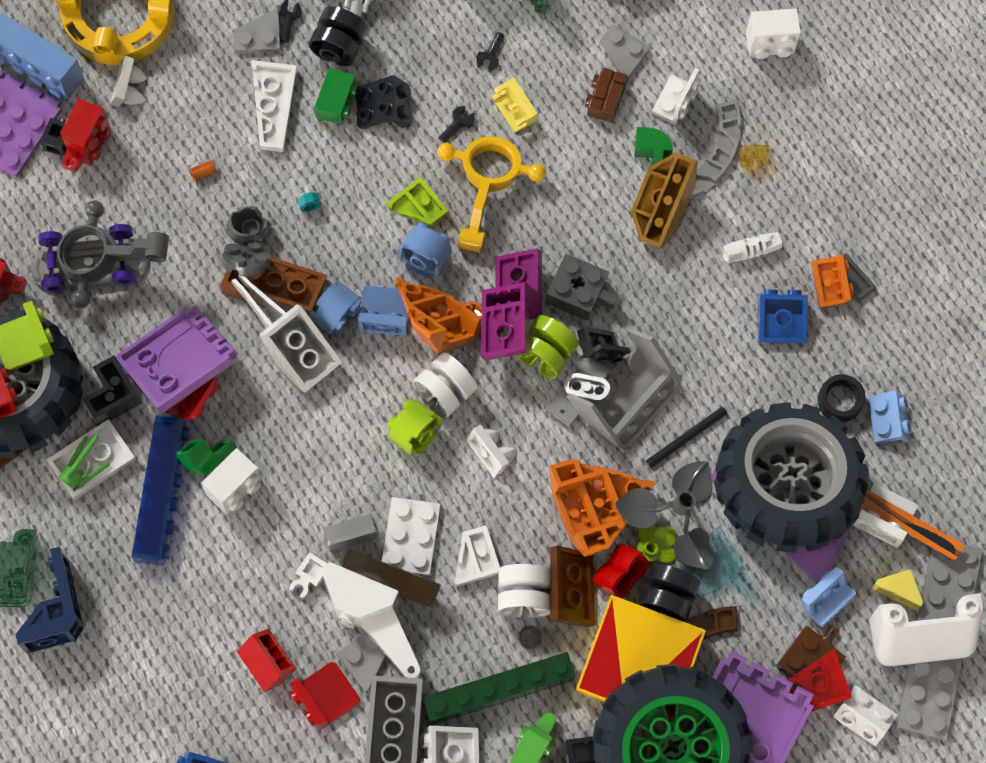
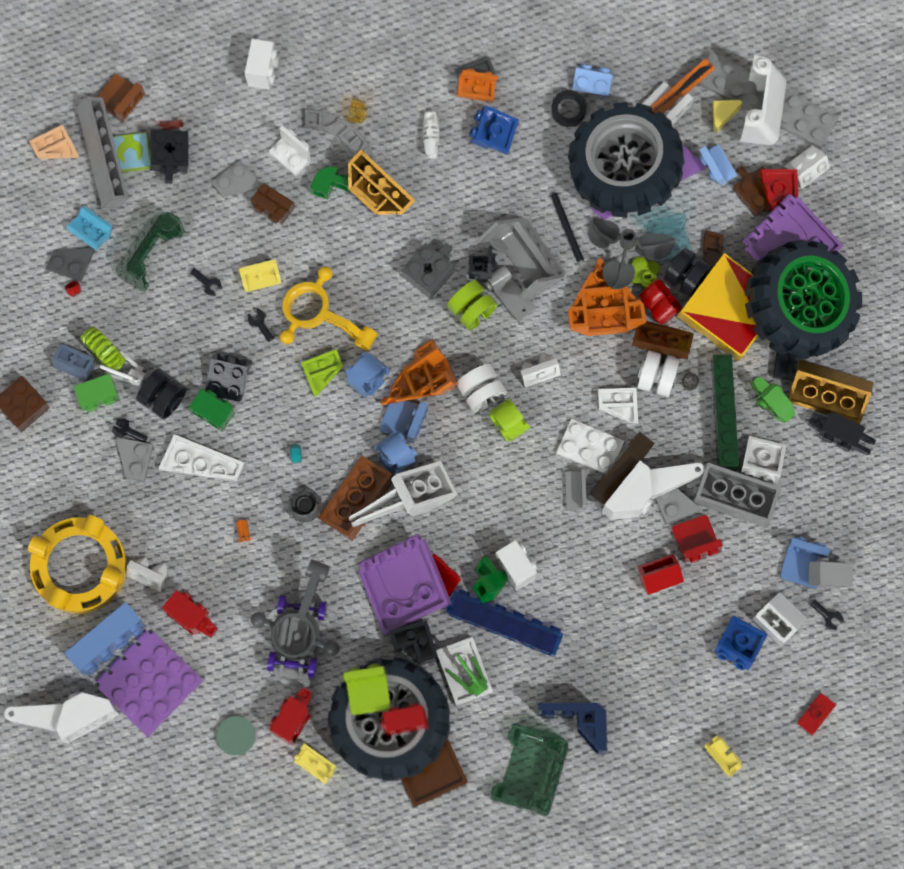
camera: 70 degrees left, 5 degrees up
(49, 138) = (175, 630): black brick -> none
(246, 258) = (329, 506): dark grey plate -> none
(310, 572) = (599, 526): white plate -> none
(511, 304) = (432, 320): magenta bracket -> none
(589, 387) = (513, 284): plate -> none

